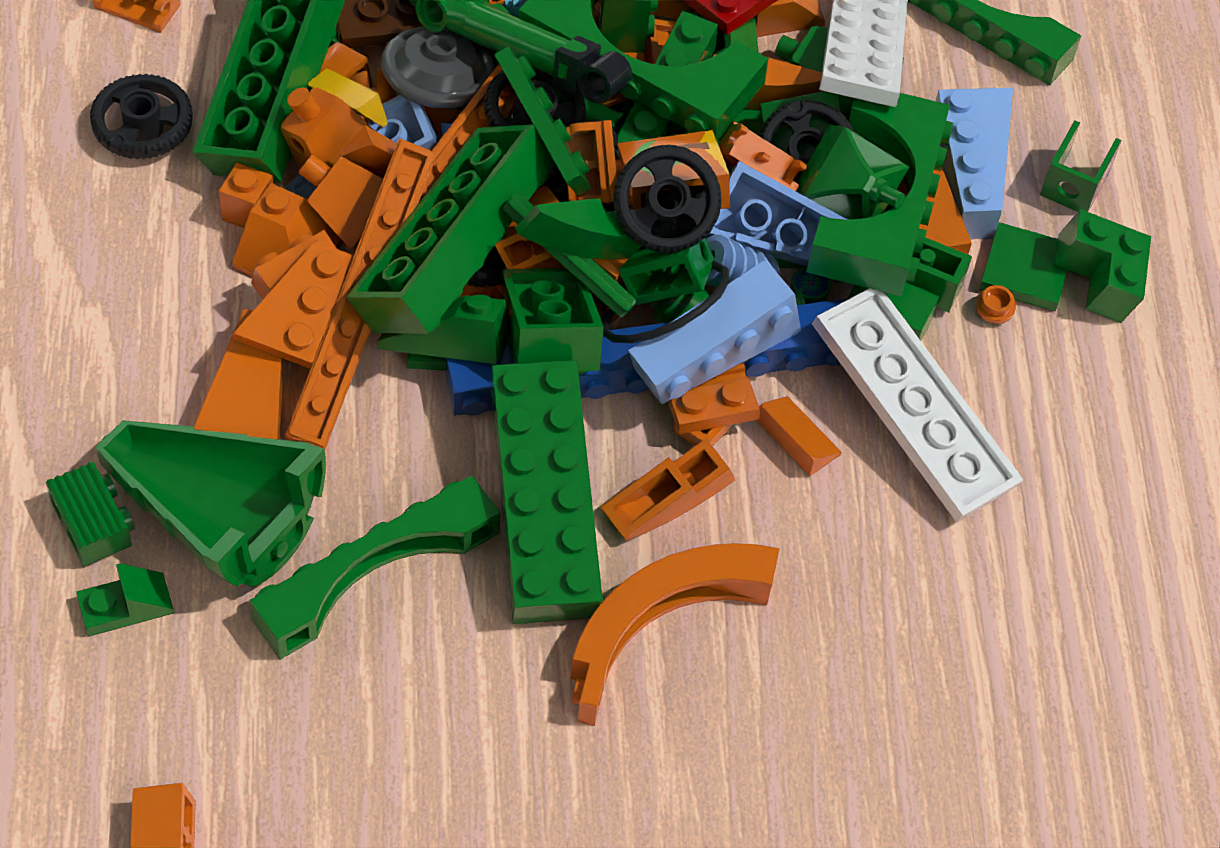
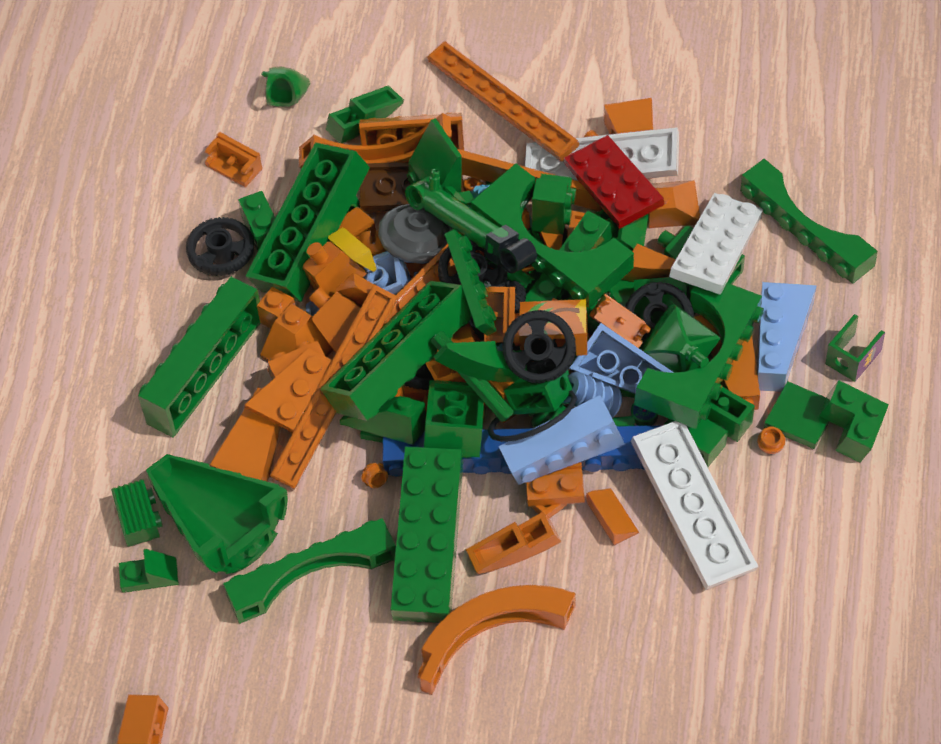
camera: 20 degrees right, 0 degrees up
(146, 275) = (200, 357): none -> green brick
(193, 69) = (256, 216): none -> green brick
(442, 417) = (374, 475): none -> orange plate

